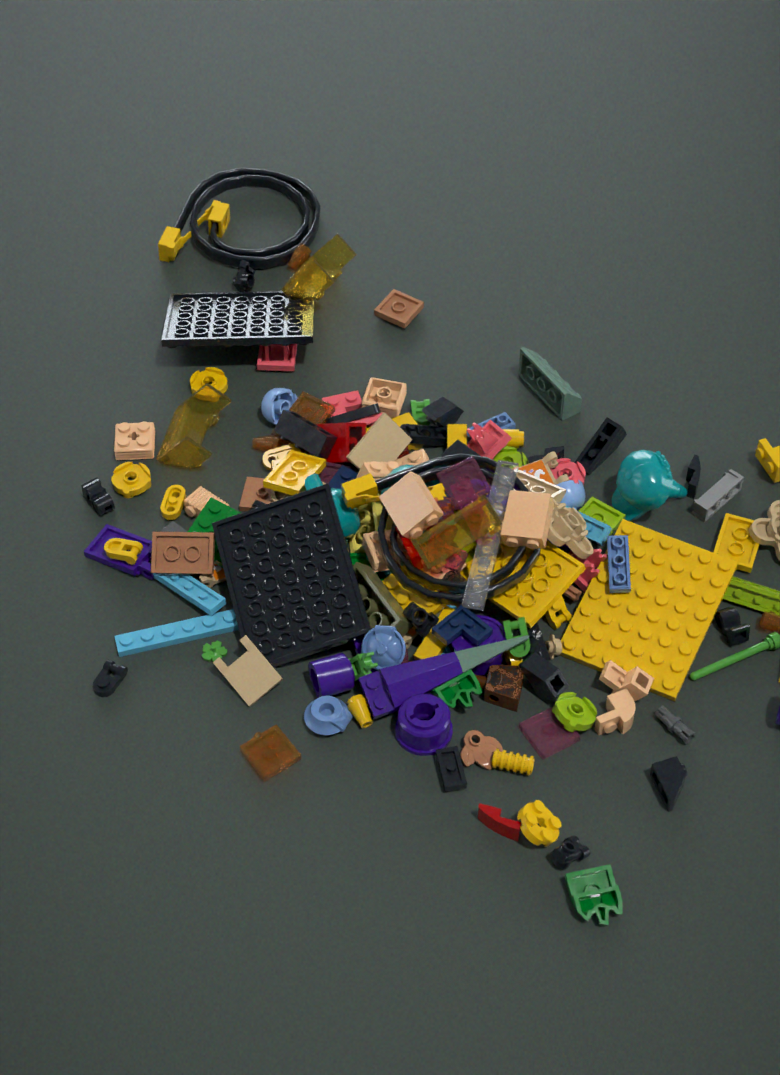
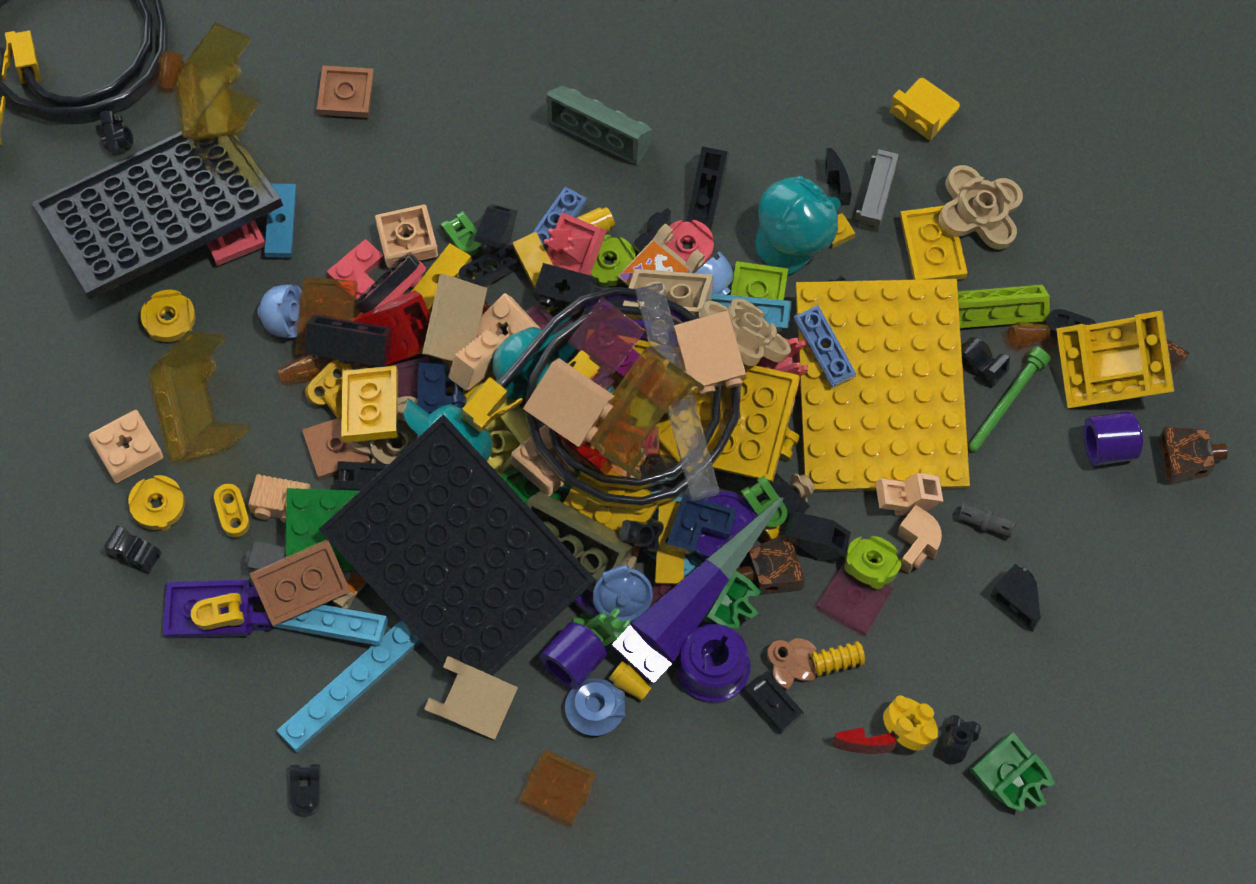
camera: 30 degrees left, 15 degrees up
(214, 651) = (408, 689): bright green plant -> none
(312, 360) = (280, 235): none -> dark azure tile
(675, 509) = (844, 233): none -> yellow plate

